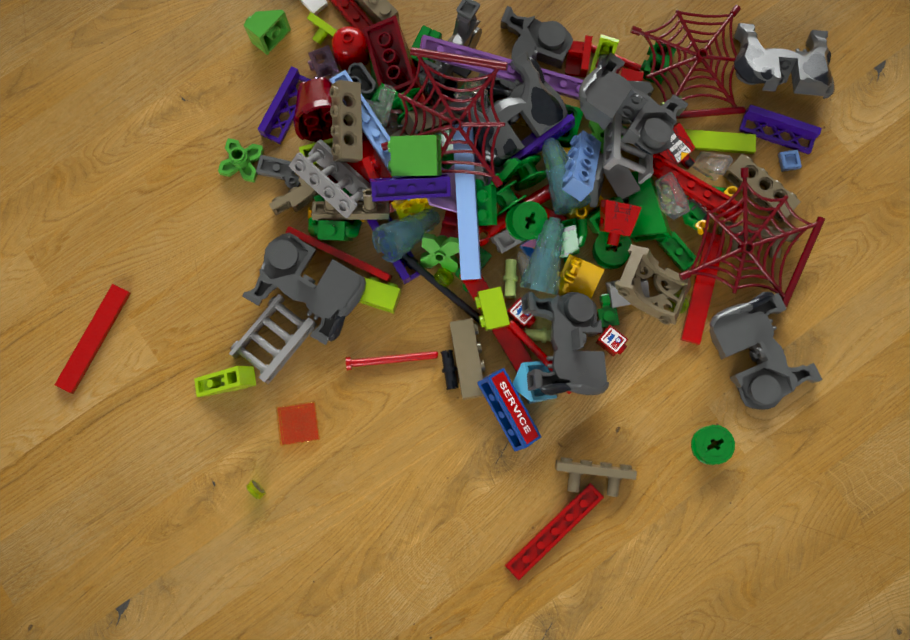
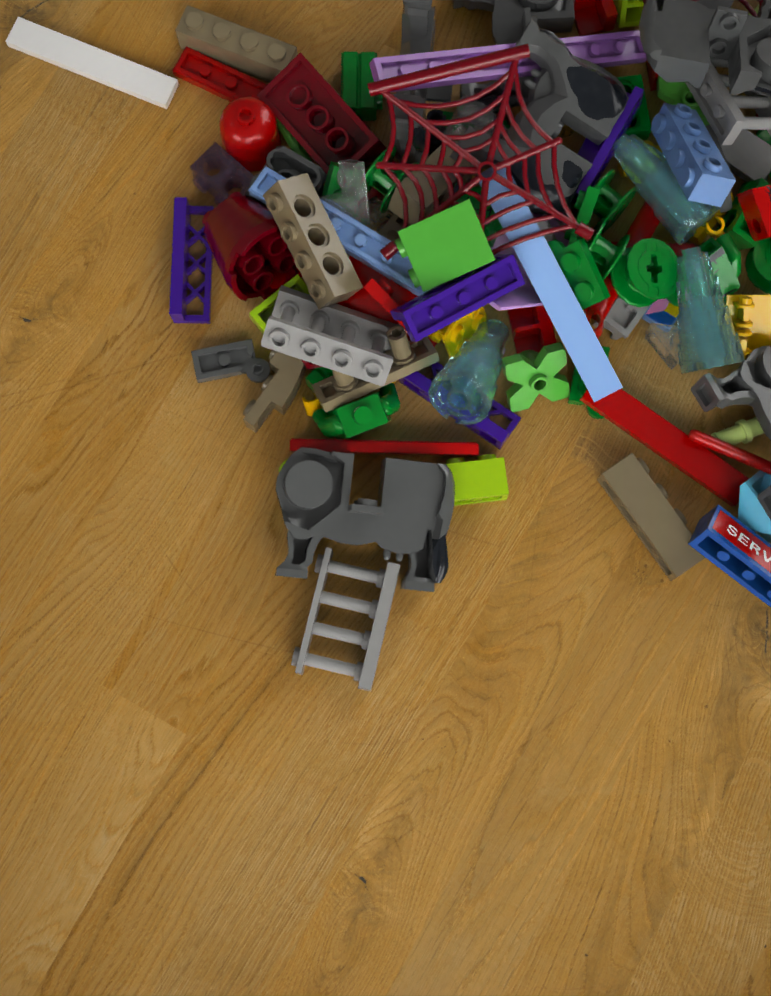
camera: 25 degrees left, 0 degrees up
(92, 339) = (68, 747): red tile -> none
(225, 381) = (306, 717): lime slope -> none
(240, 160) = (155, 384): bright green plant -> none
(255, 489) = (434, 858): clear neon green tile -> none
(267, 29) = (109, 157): bright green slope -> none
(297, 423) = (446, 729): tile -> none
(324, 28) = (194, 122): lime tile -> none
(390, 359) = (481, 602): red bar -> none
(413, 263) = (501, 412): black bar -> none
(444, 277) = (556, 411): clear neon green tile -> none
(449, 369) = (632, 545): black pin -> none
(492, 309) = (657, 425): lime brick -> none
(510, 278) = (654, 370): yellowish green pin -> none
(522, 320) = (691, 416): red brick -> none

